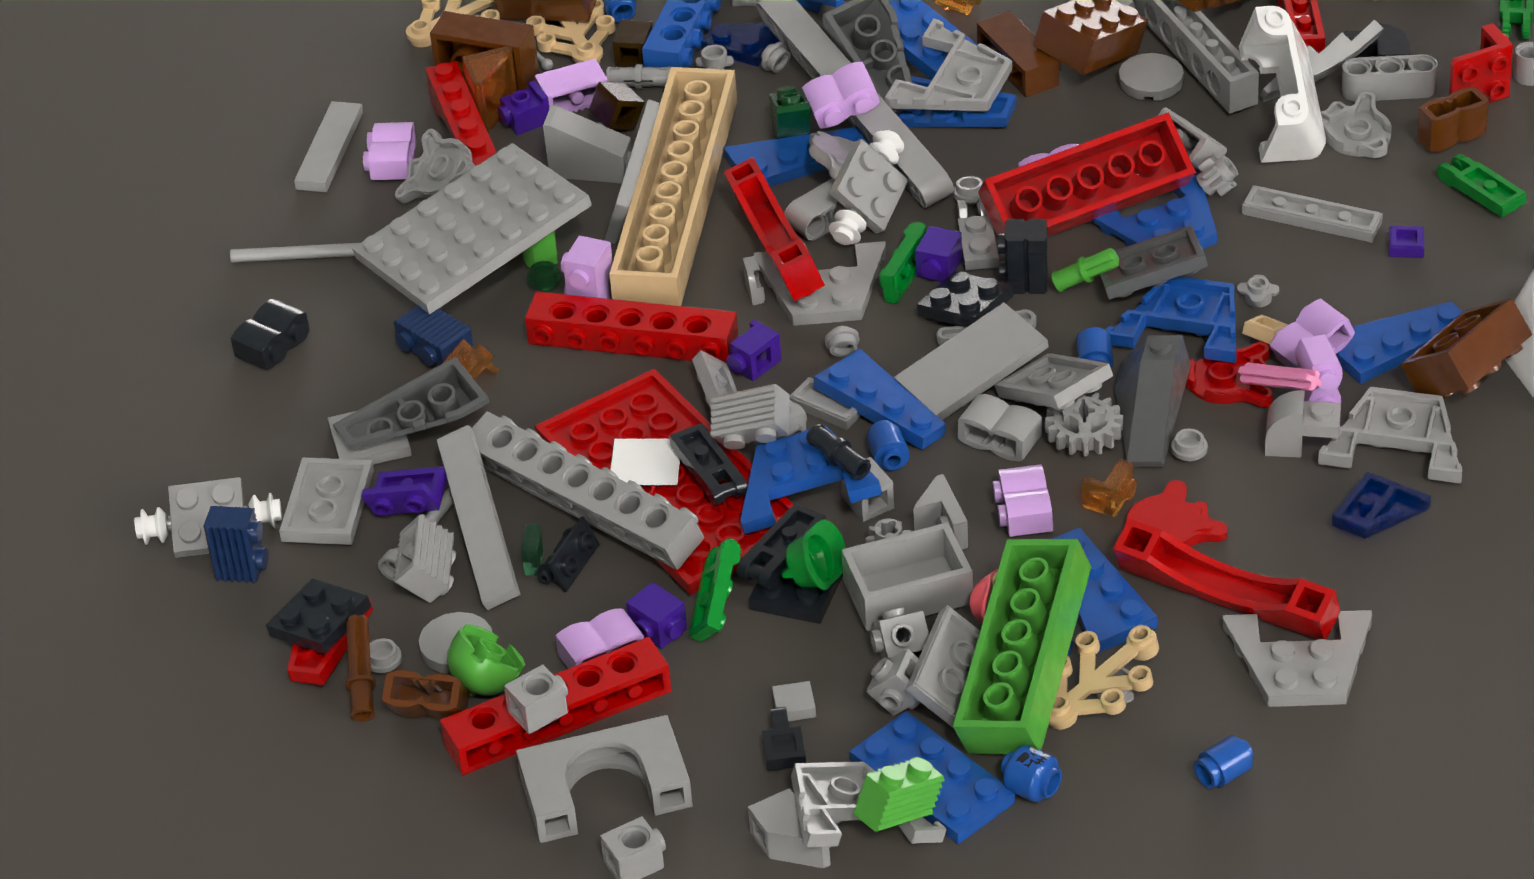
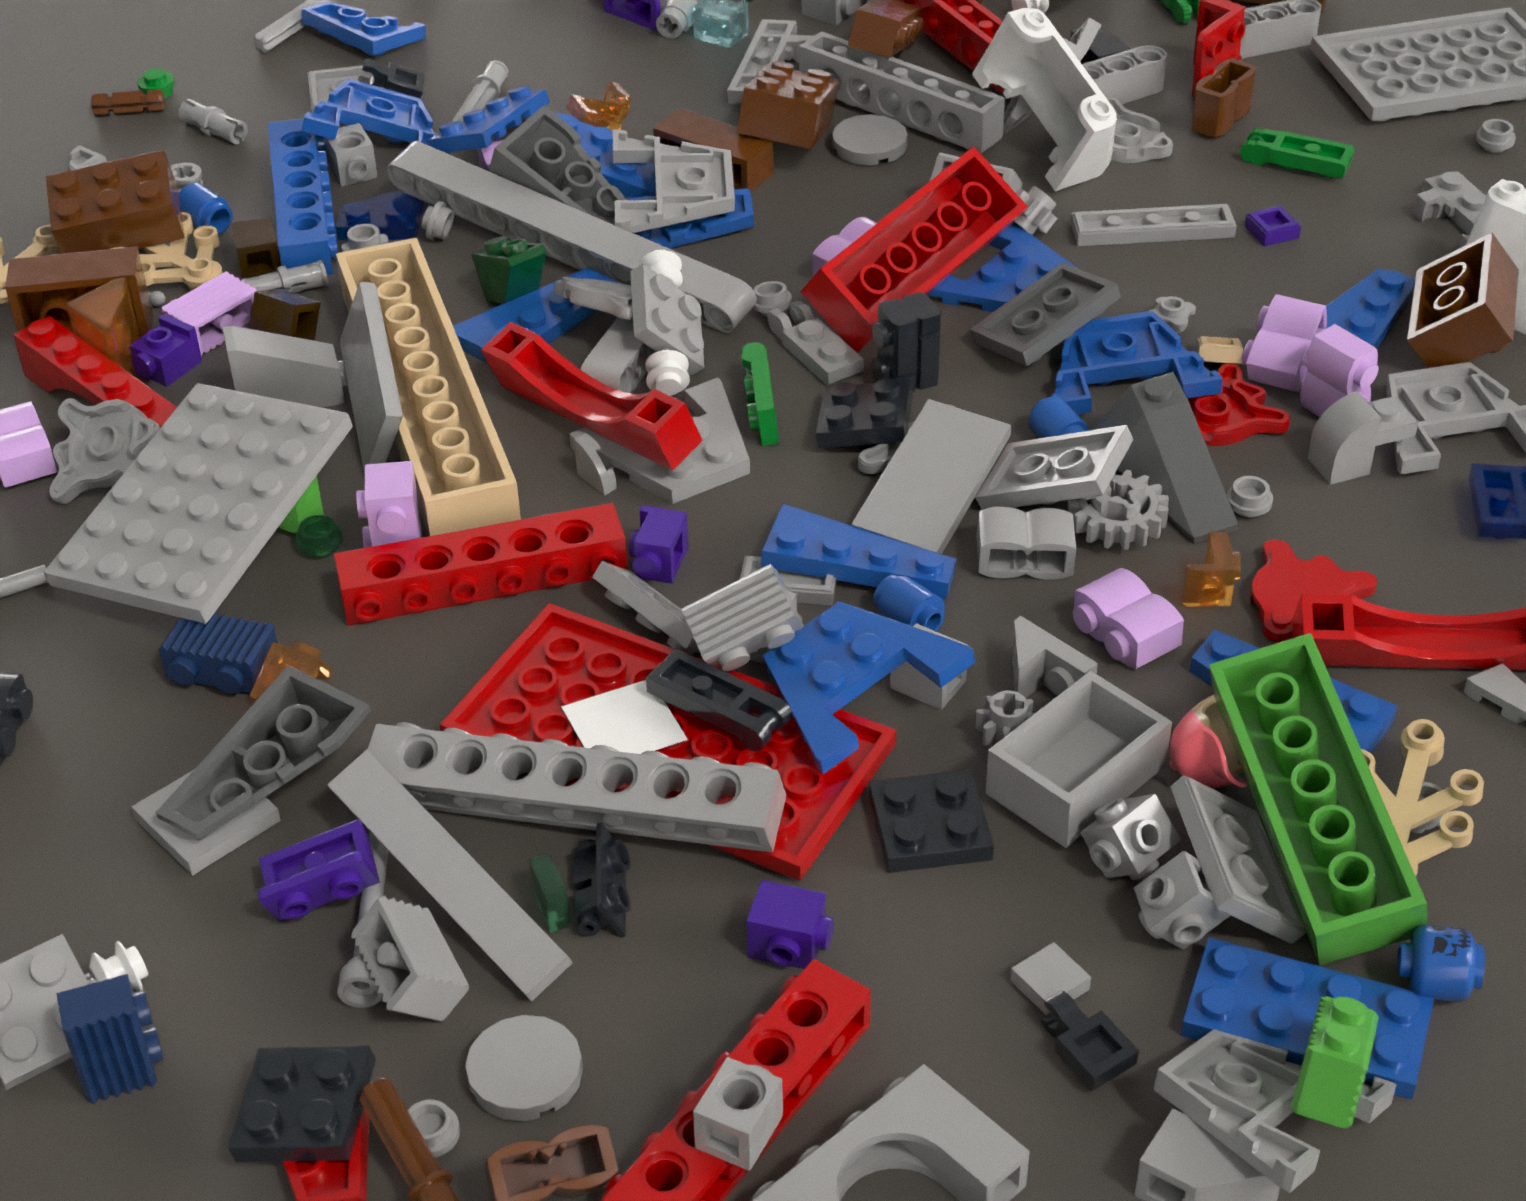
camera: 30 degrees left, 0 degrees up
(326, 501) = (202, 926): light grey plate -> none
(481, 662) = (601, 1084): bright green cylinder -> none
(595, 638) = (738, 985): lavender brick -> none
(714, 589) = (848, 864): green hinge -> none
(773, 546) = (893, 772): black plate -> none
(815, 557) = (953, 777): green piece -> none
(838, 452) = (897, 626): black pin -> none
(841, 94) = (570, 228): lavender brick -> none
(842, 341) = (756, 501): light grey plate -> none
(938, 253) = (794, 373): dark purple brick -> none
(1085, 269) = (980, 340): bright green axle -> none
(1279, 376) = (1307, 387): bright pink axle -> none

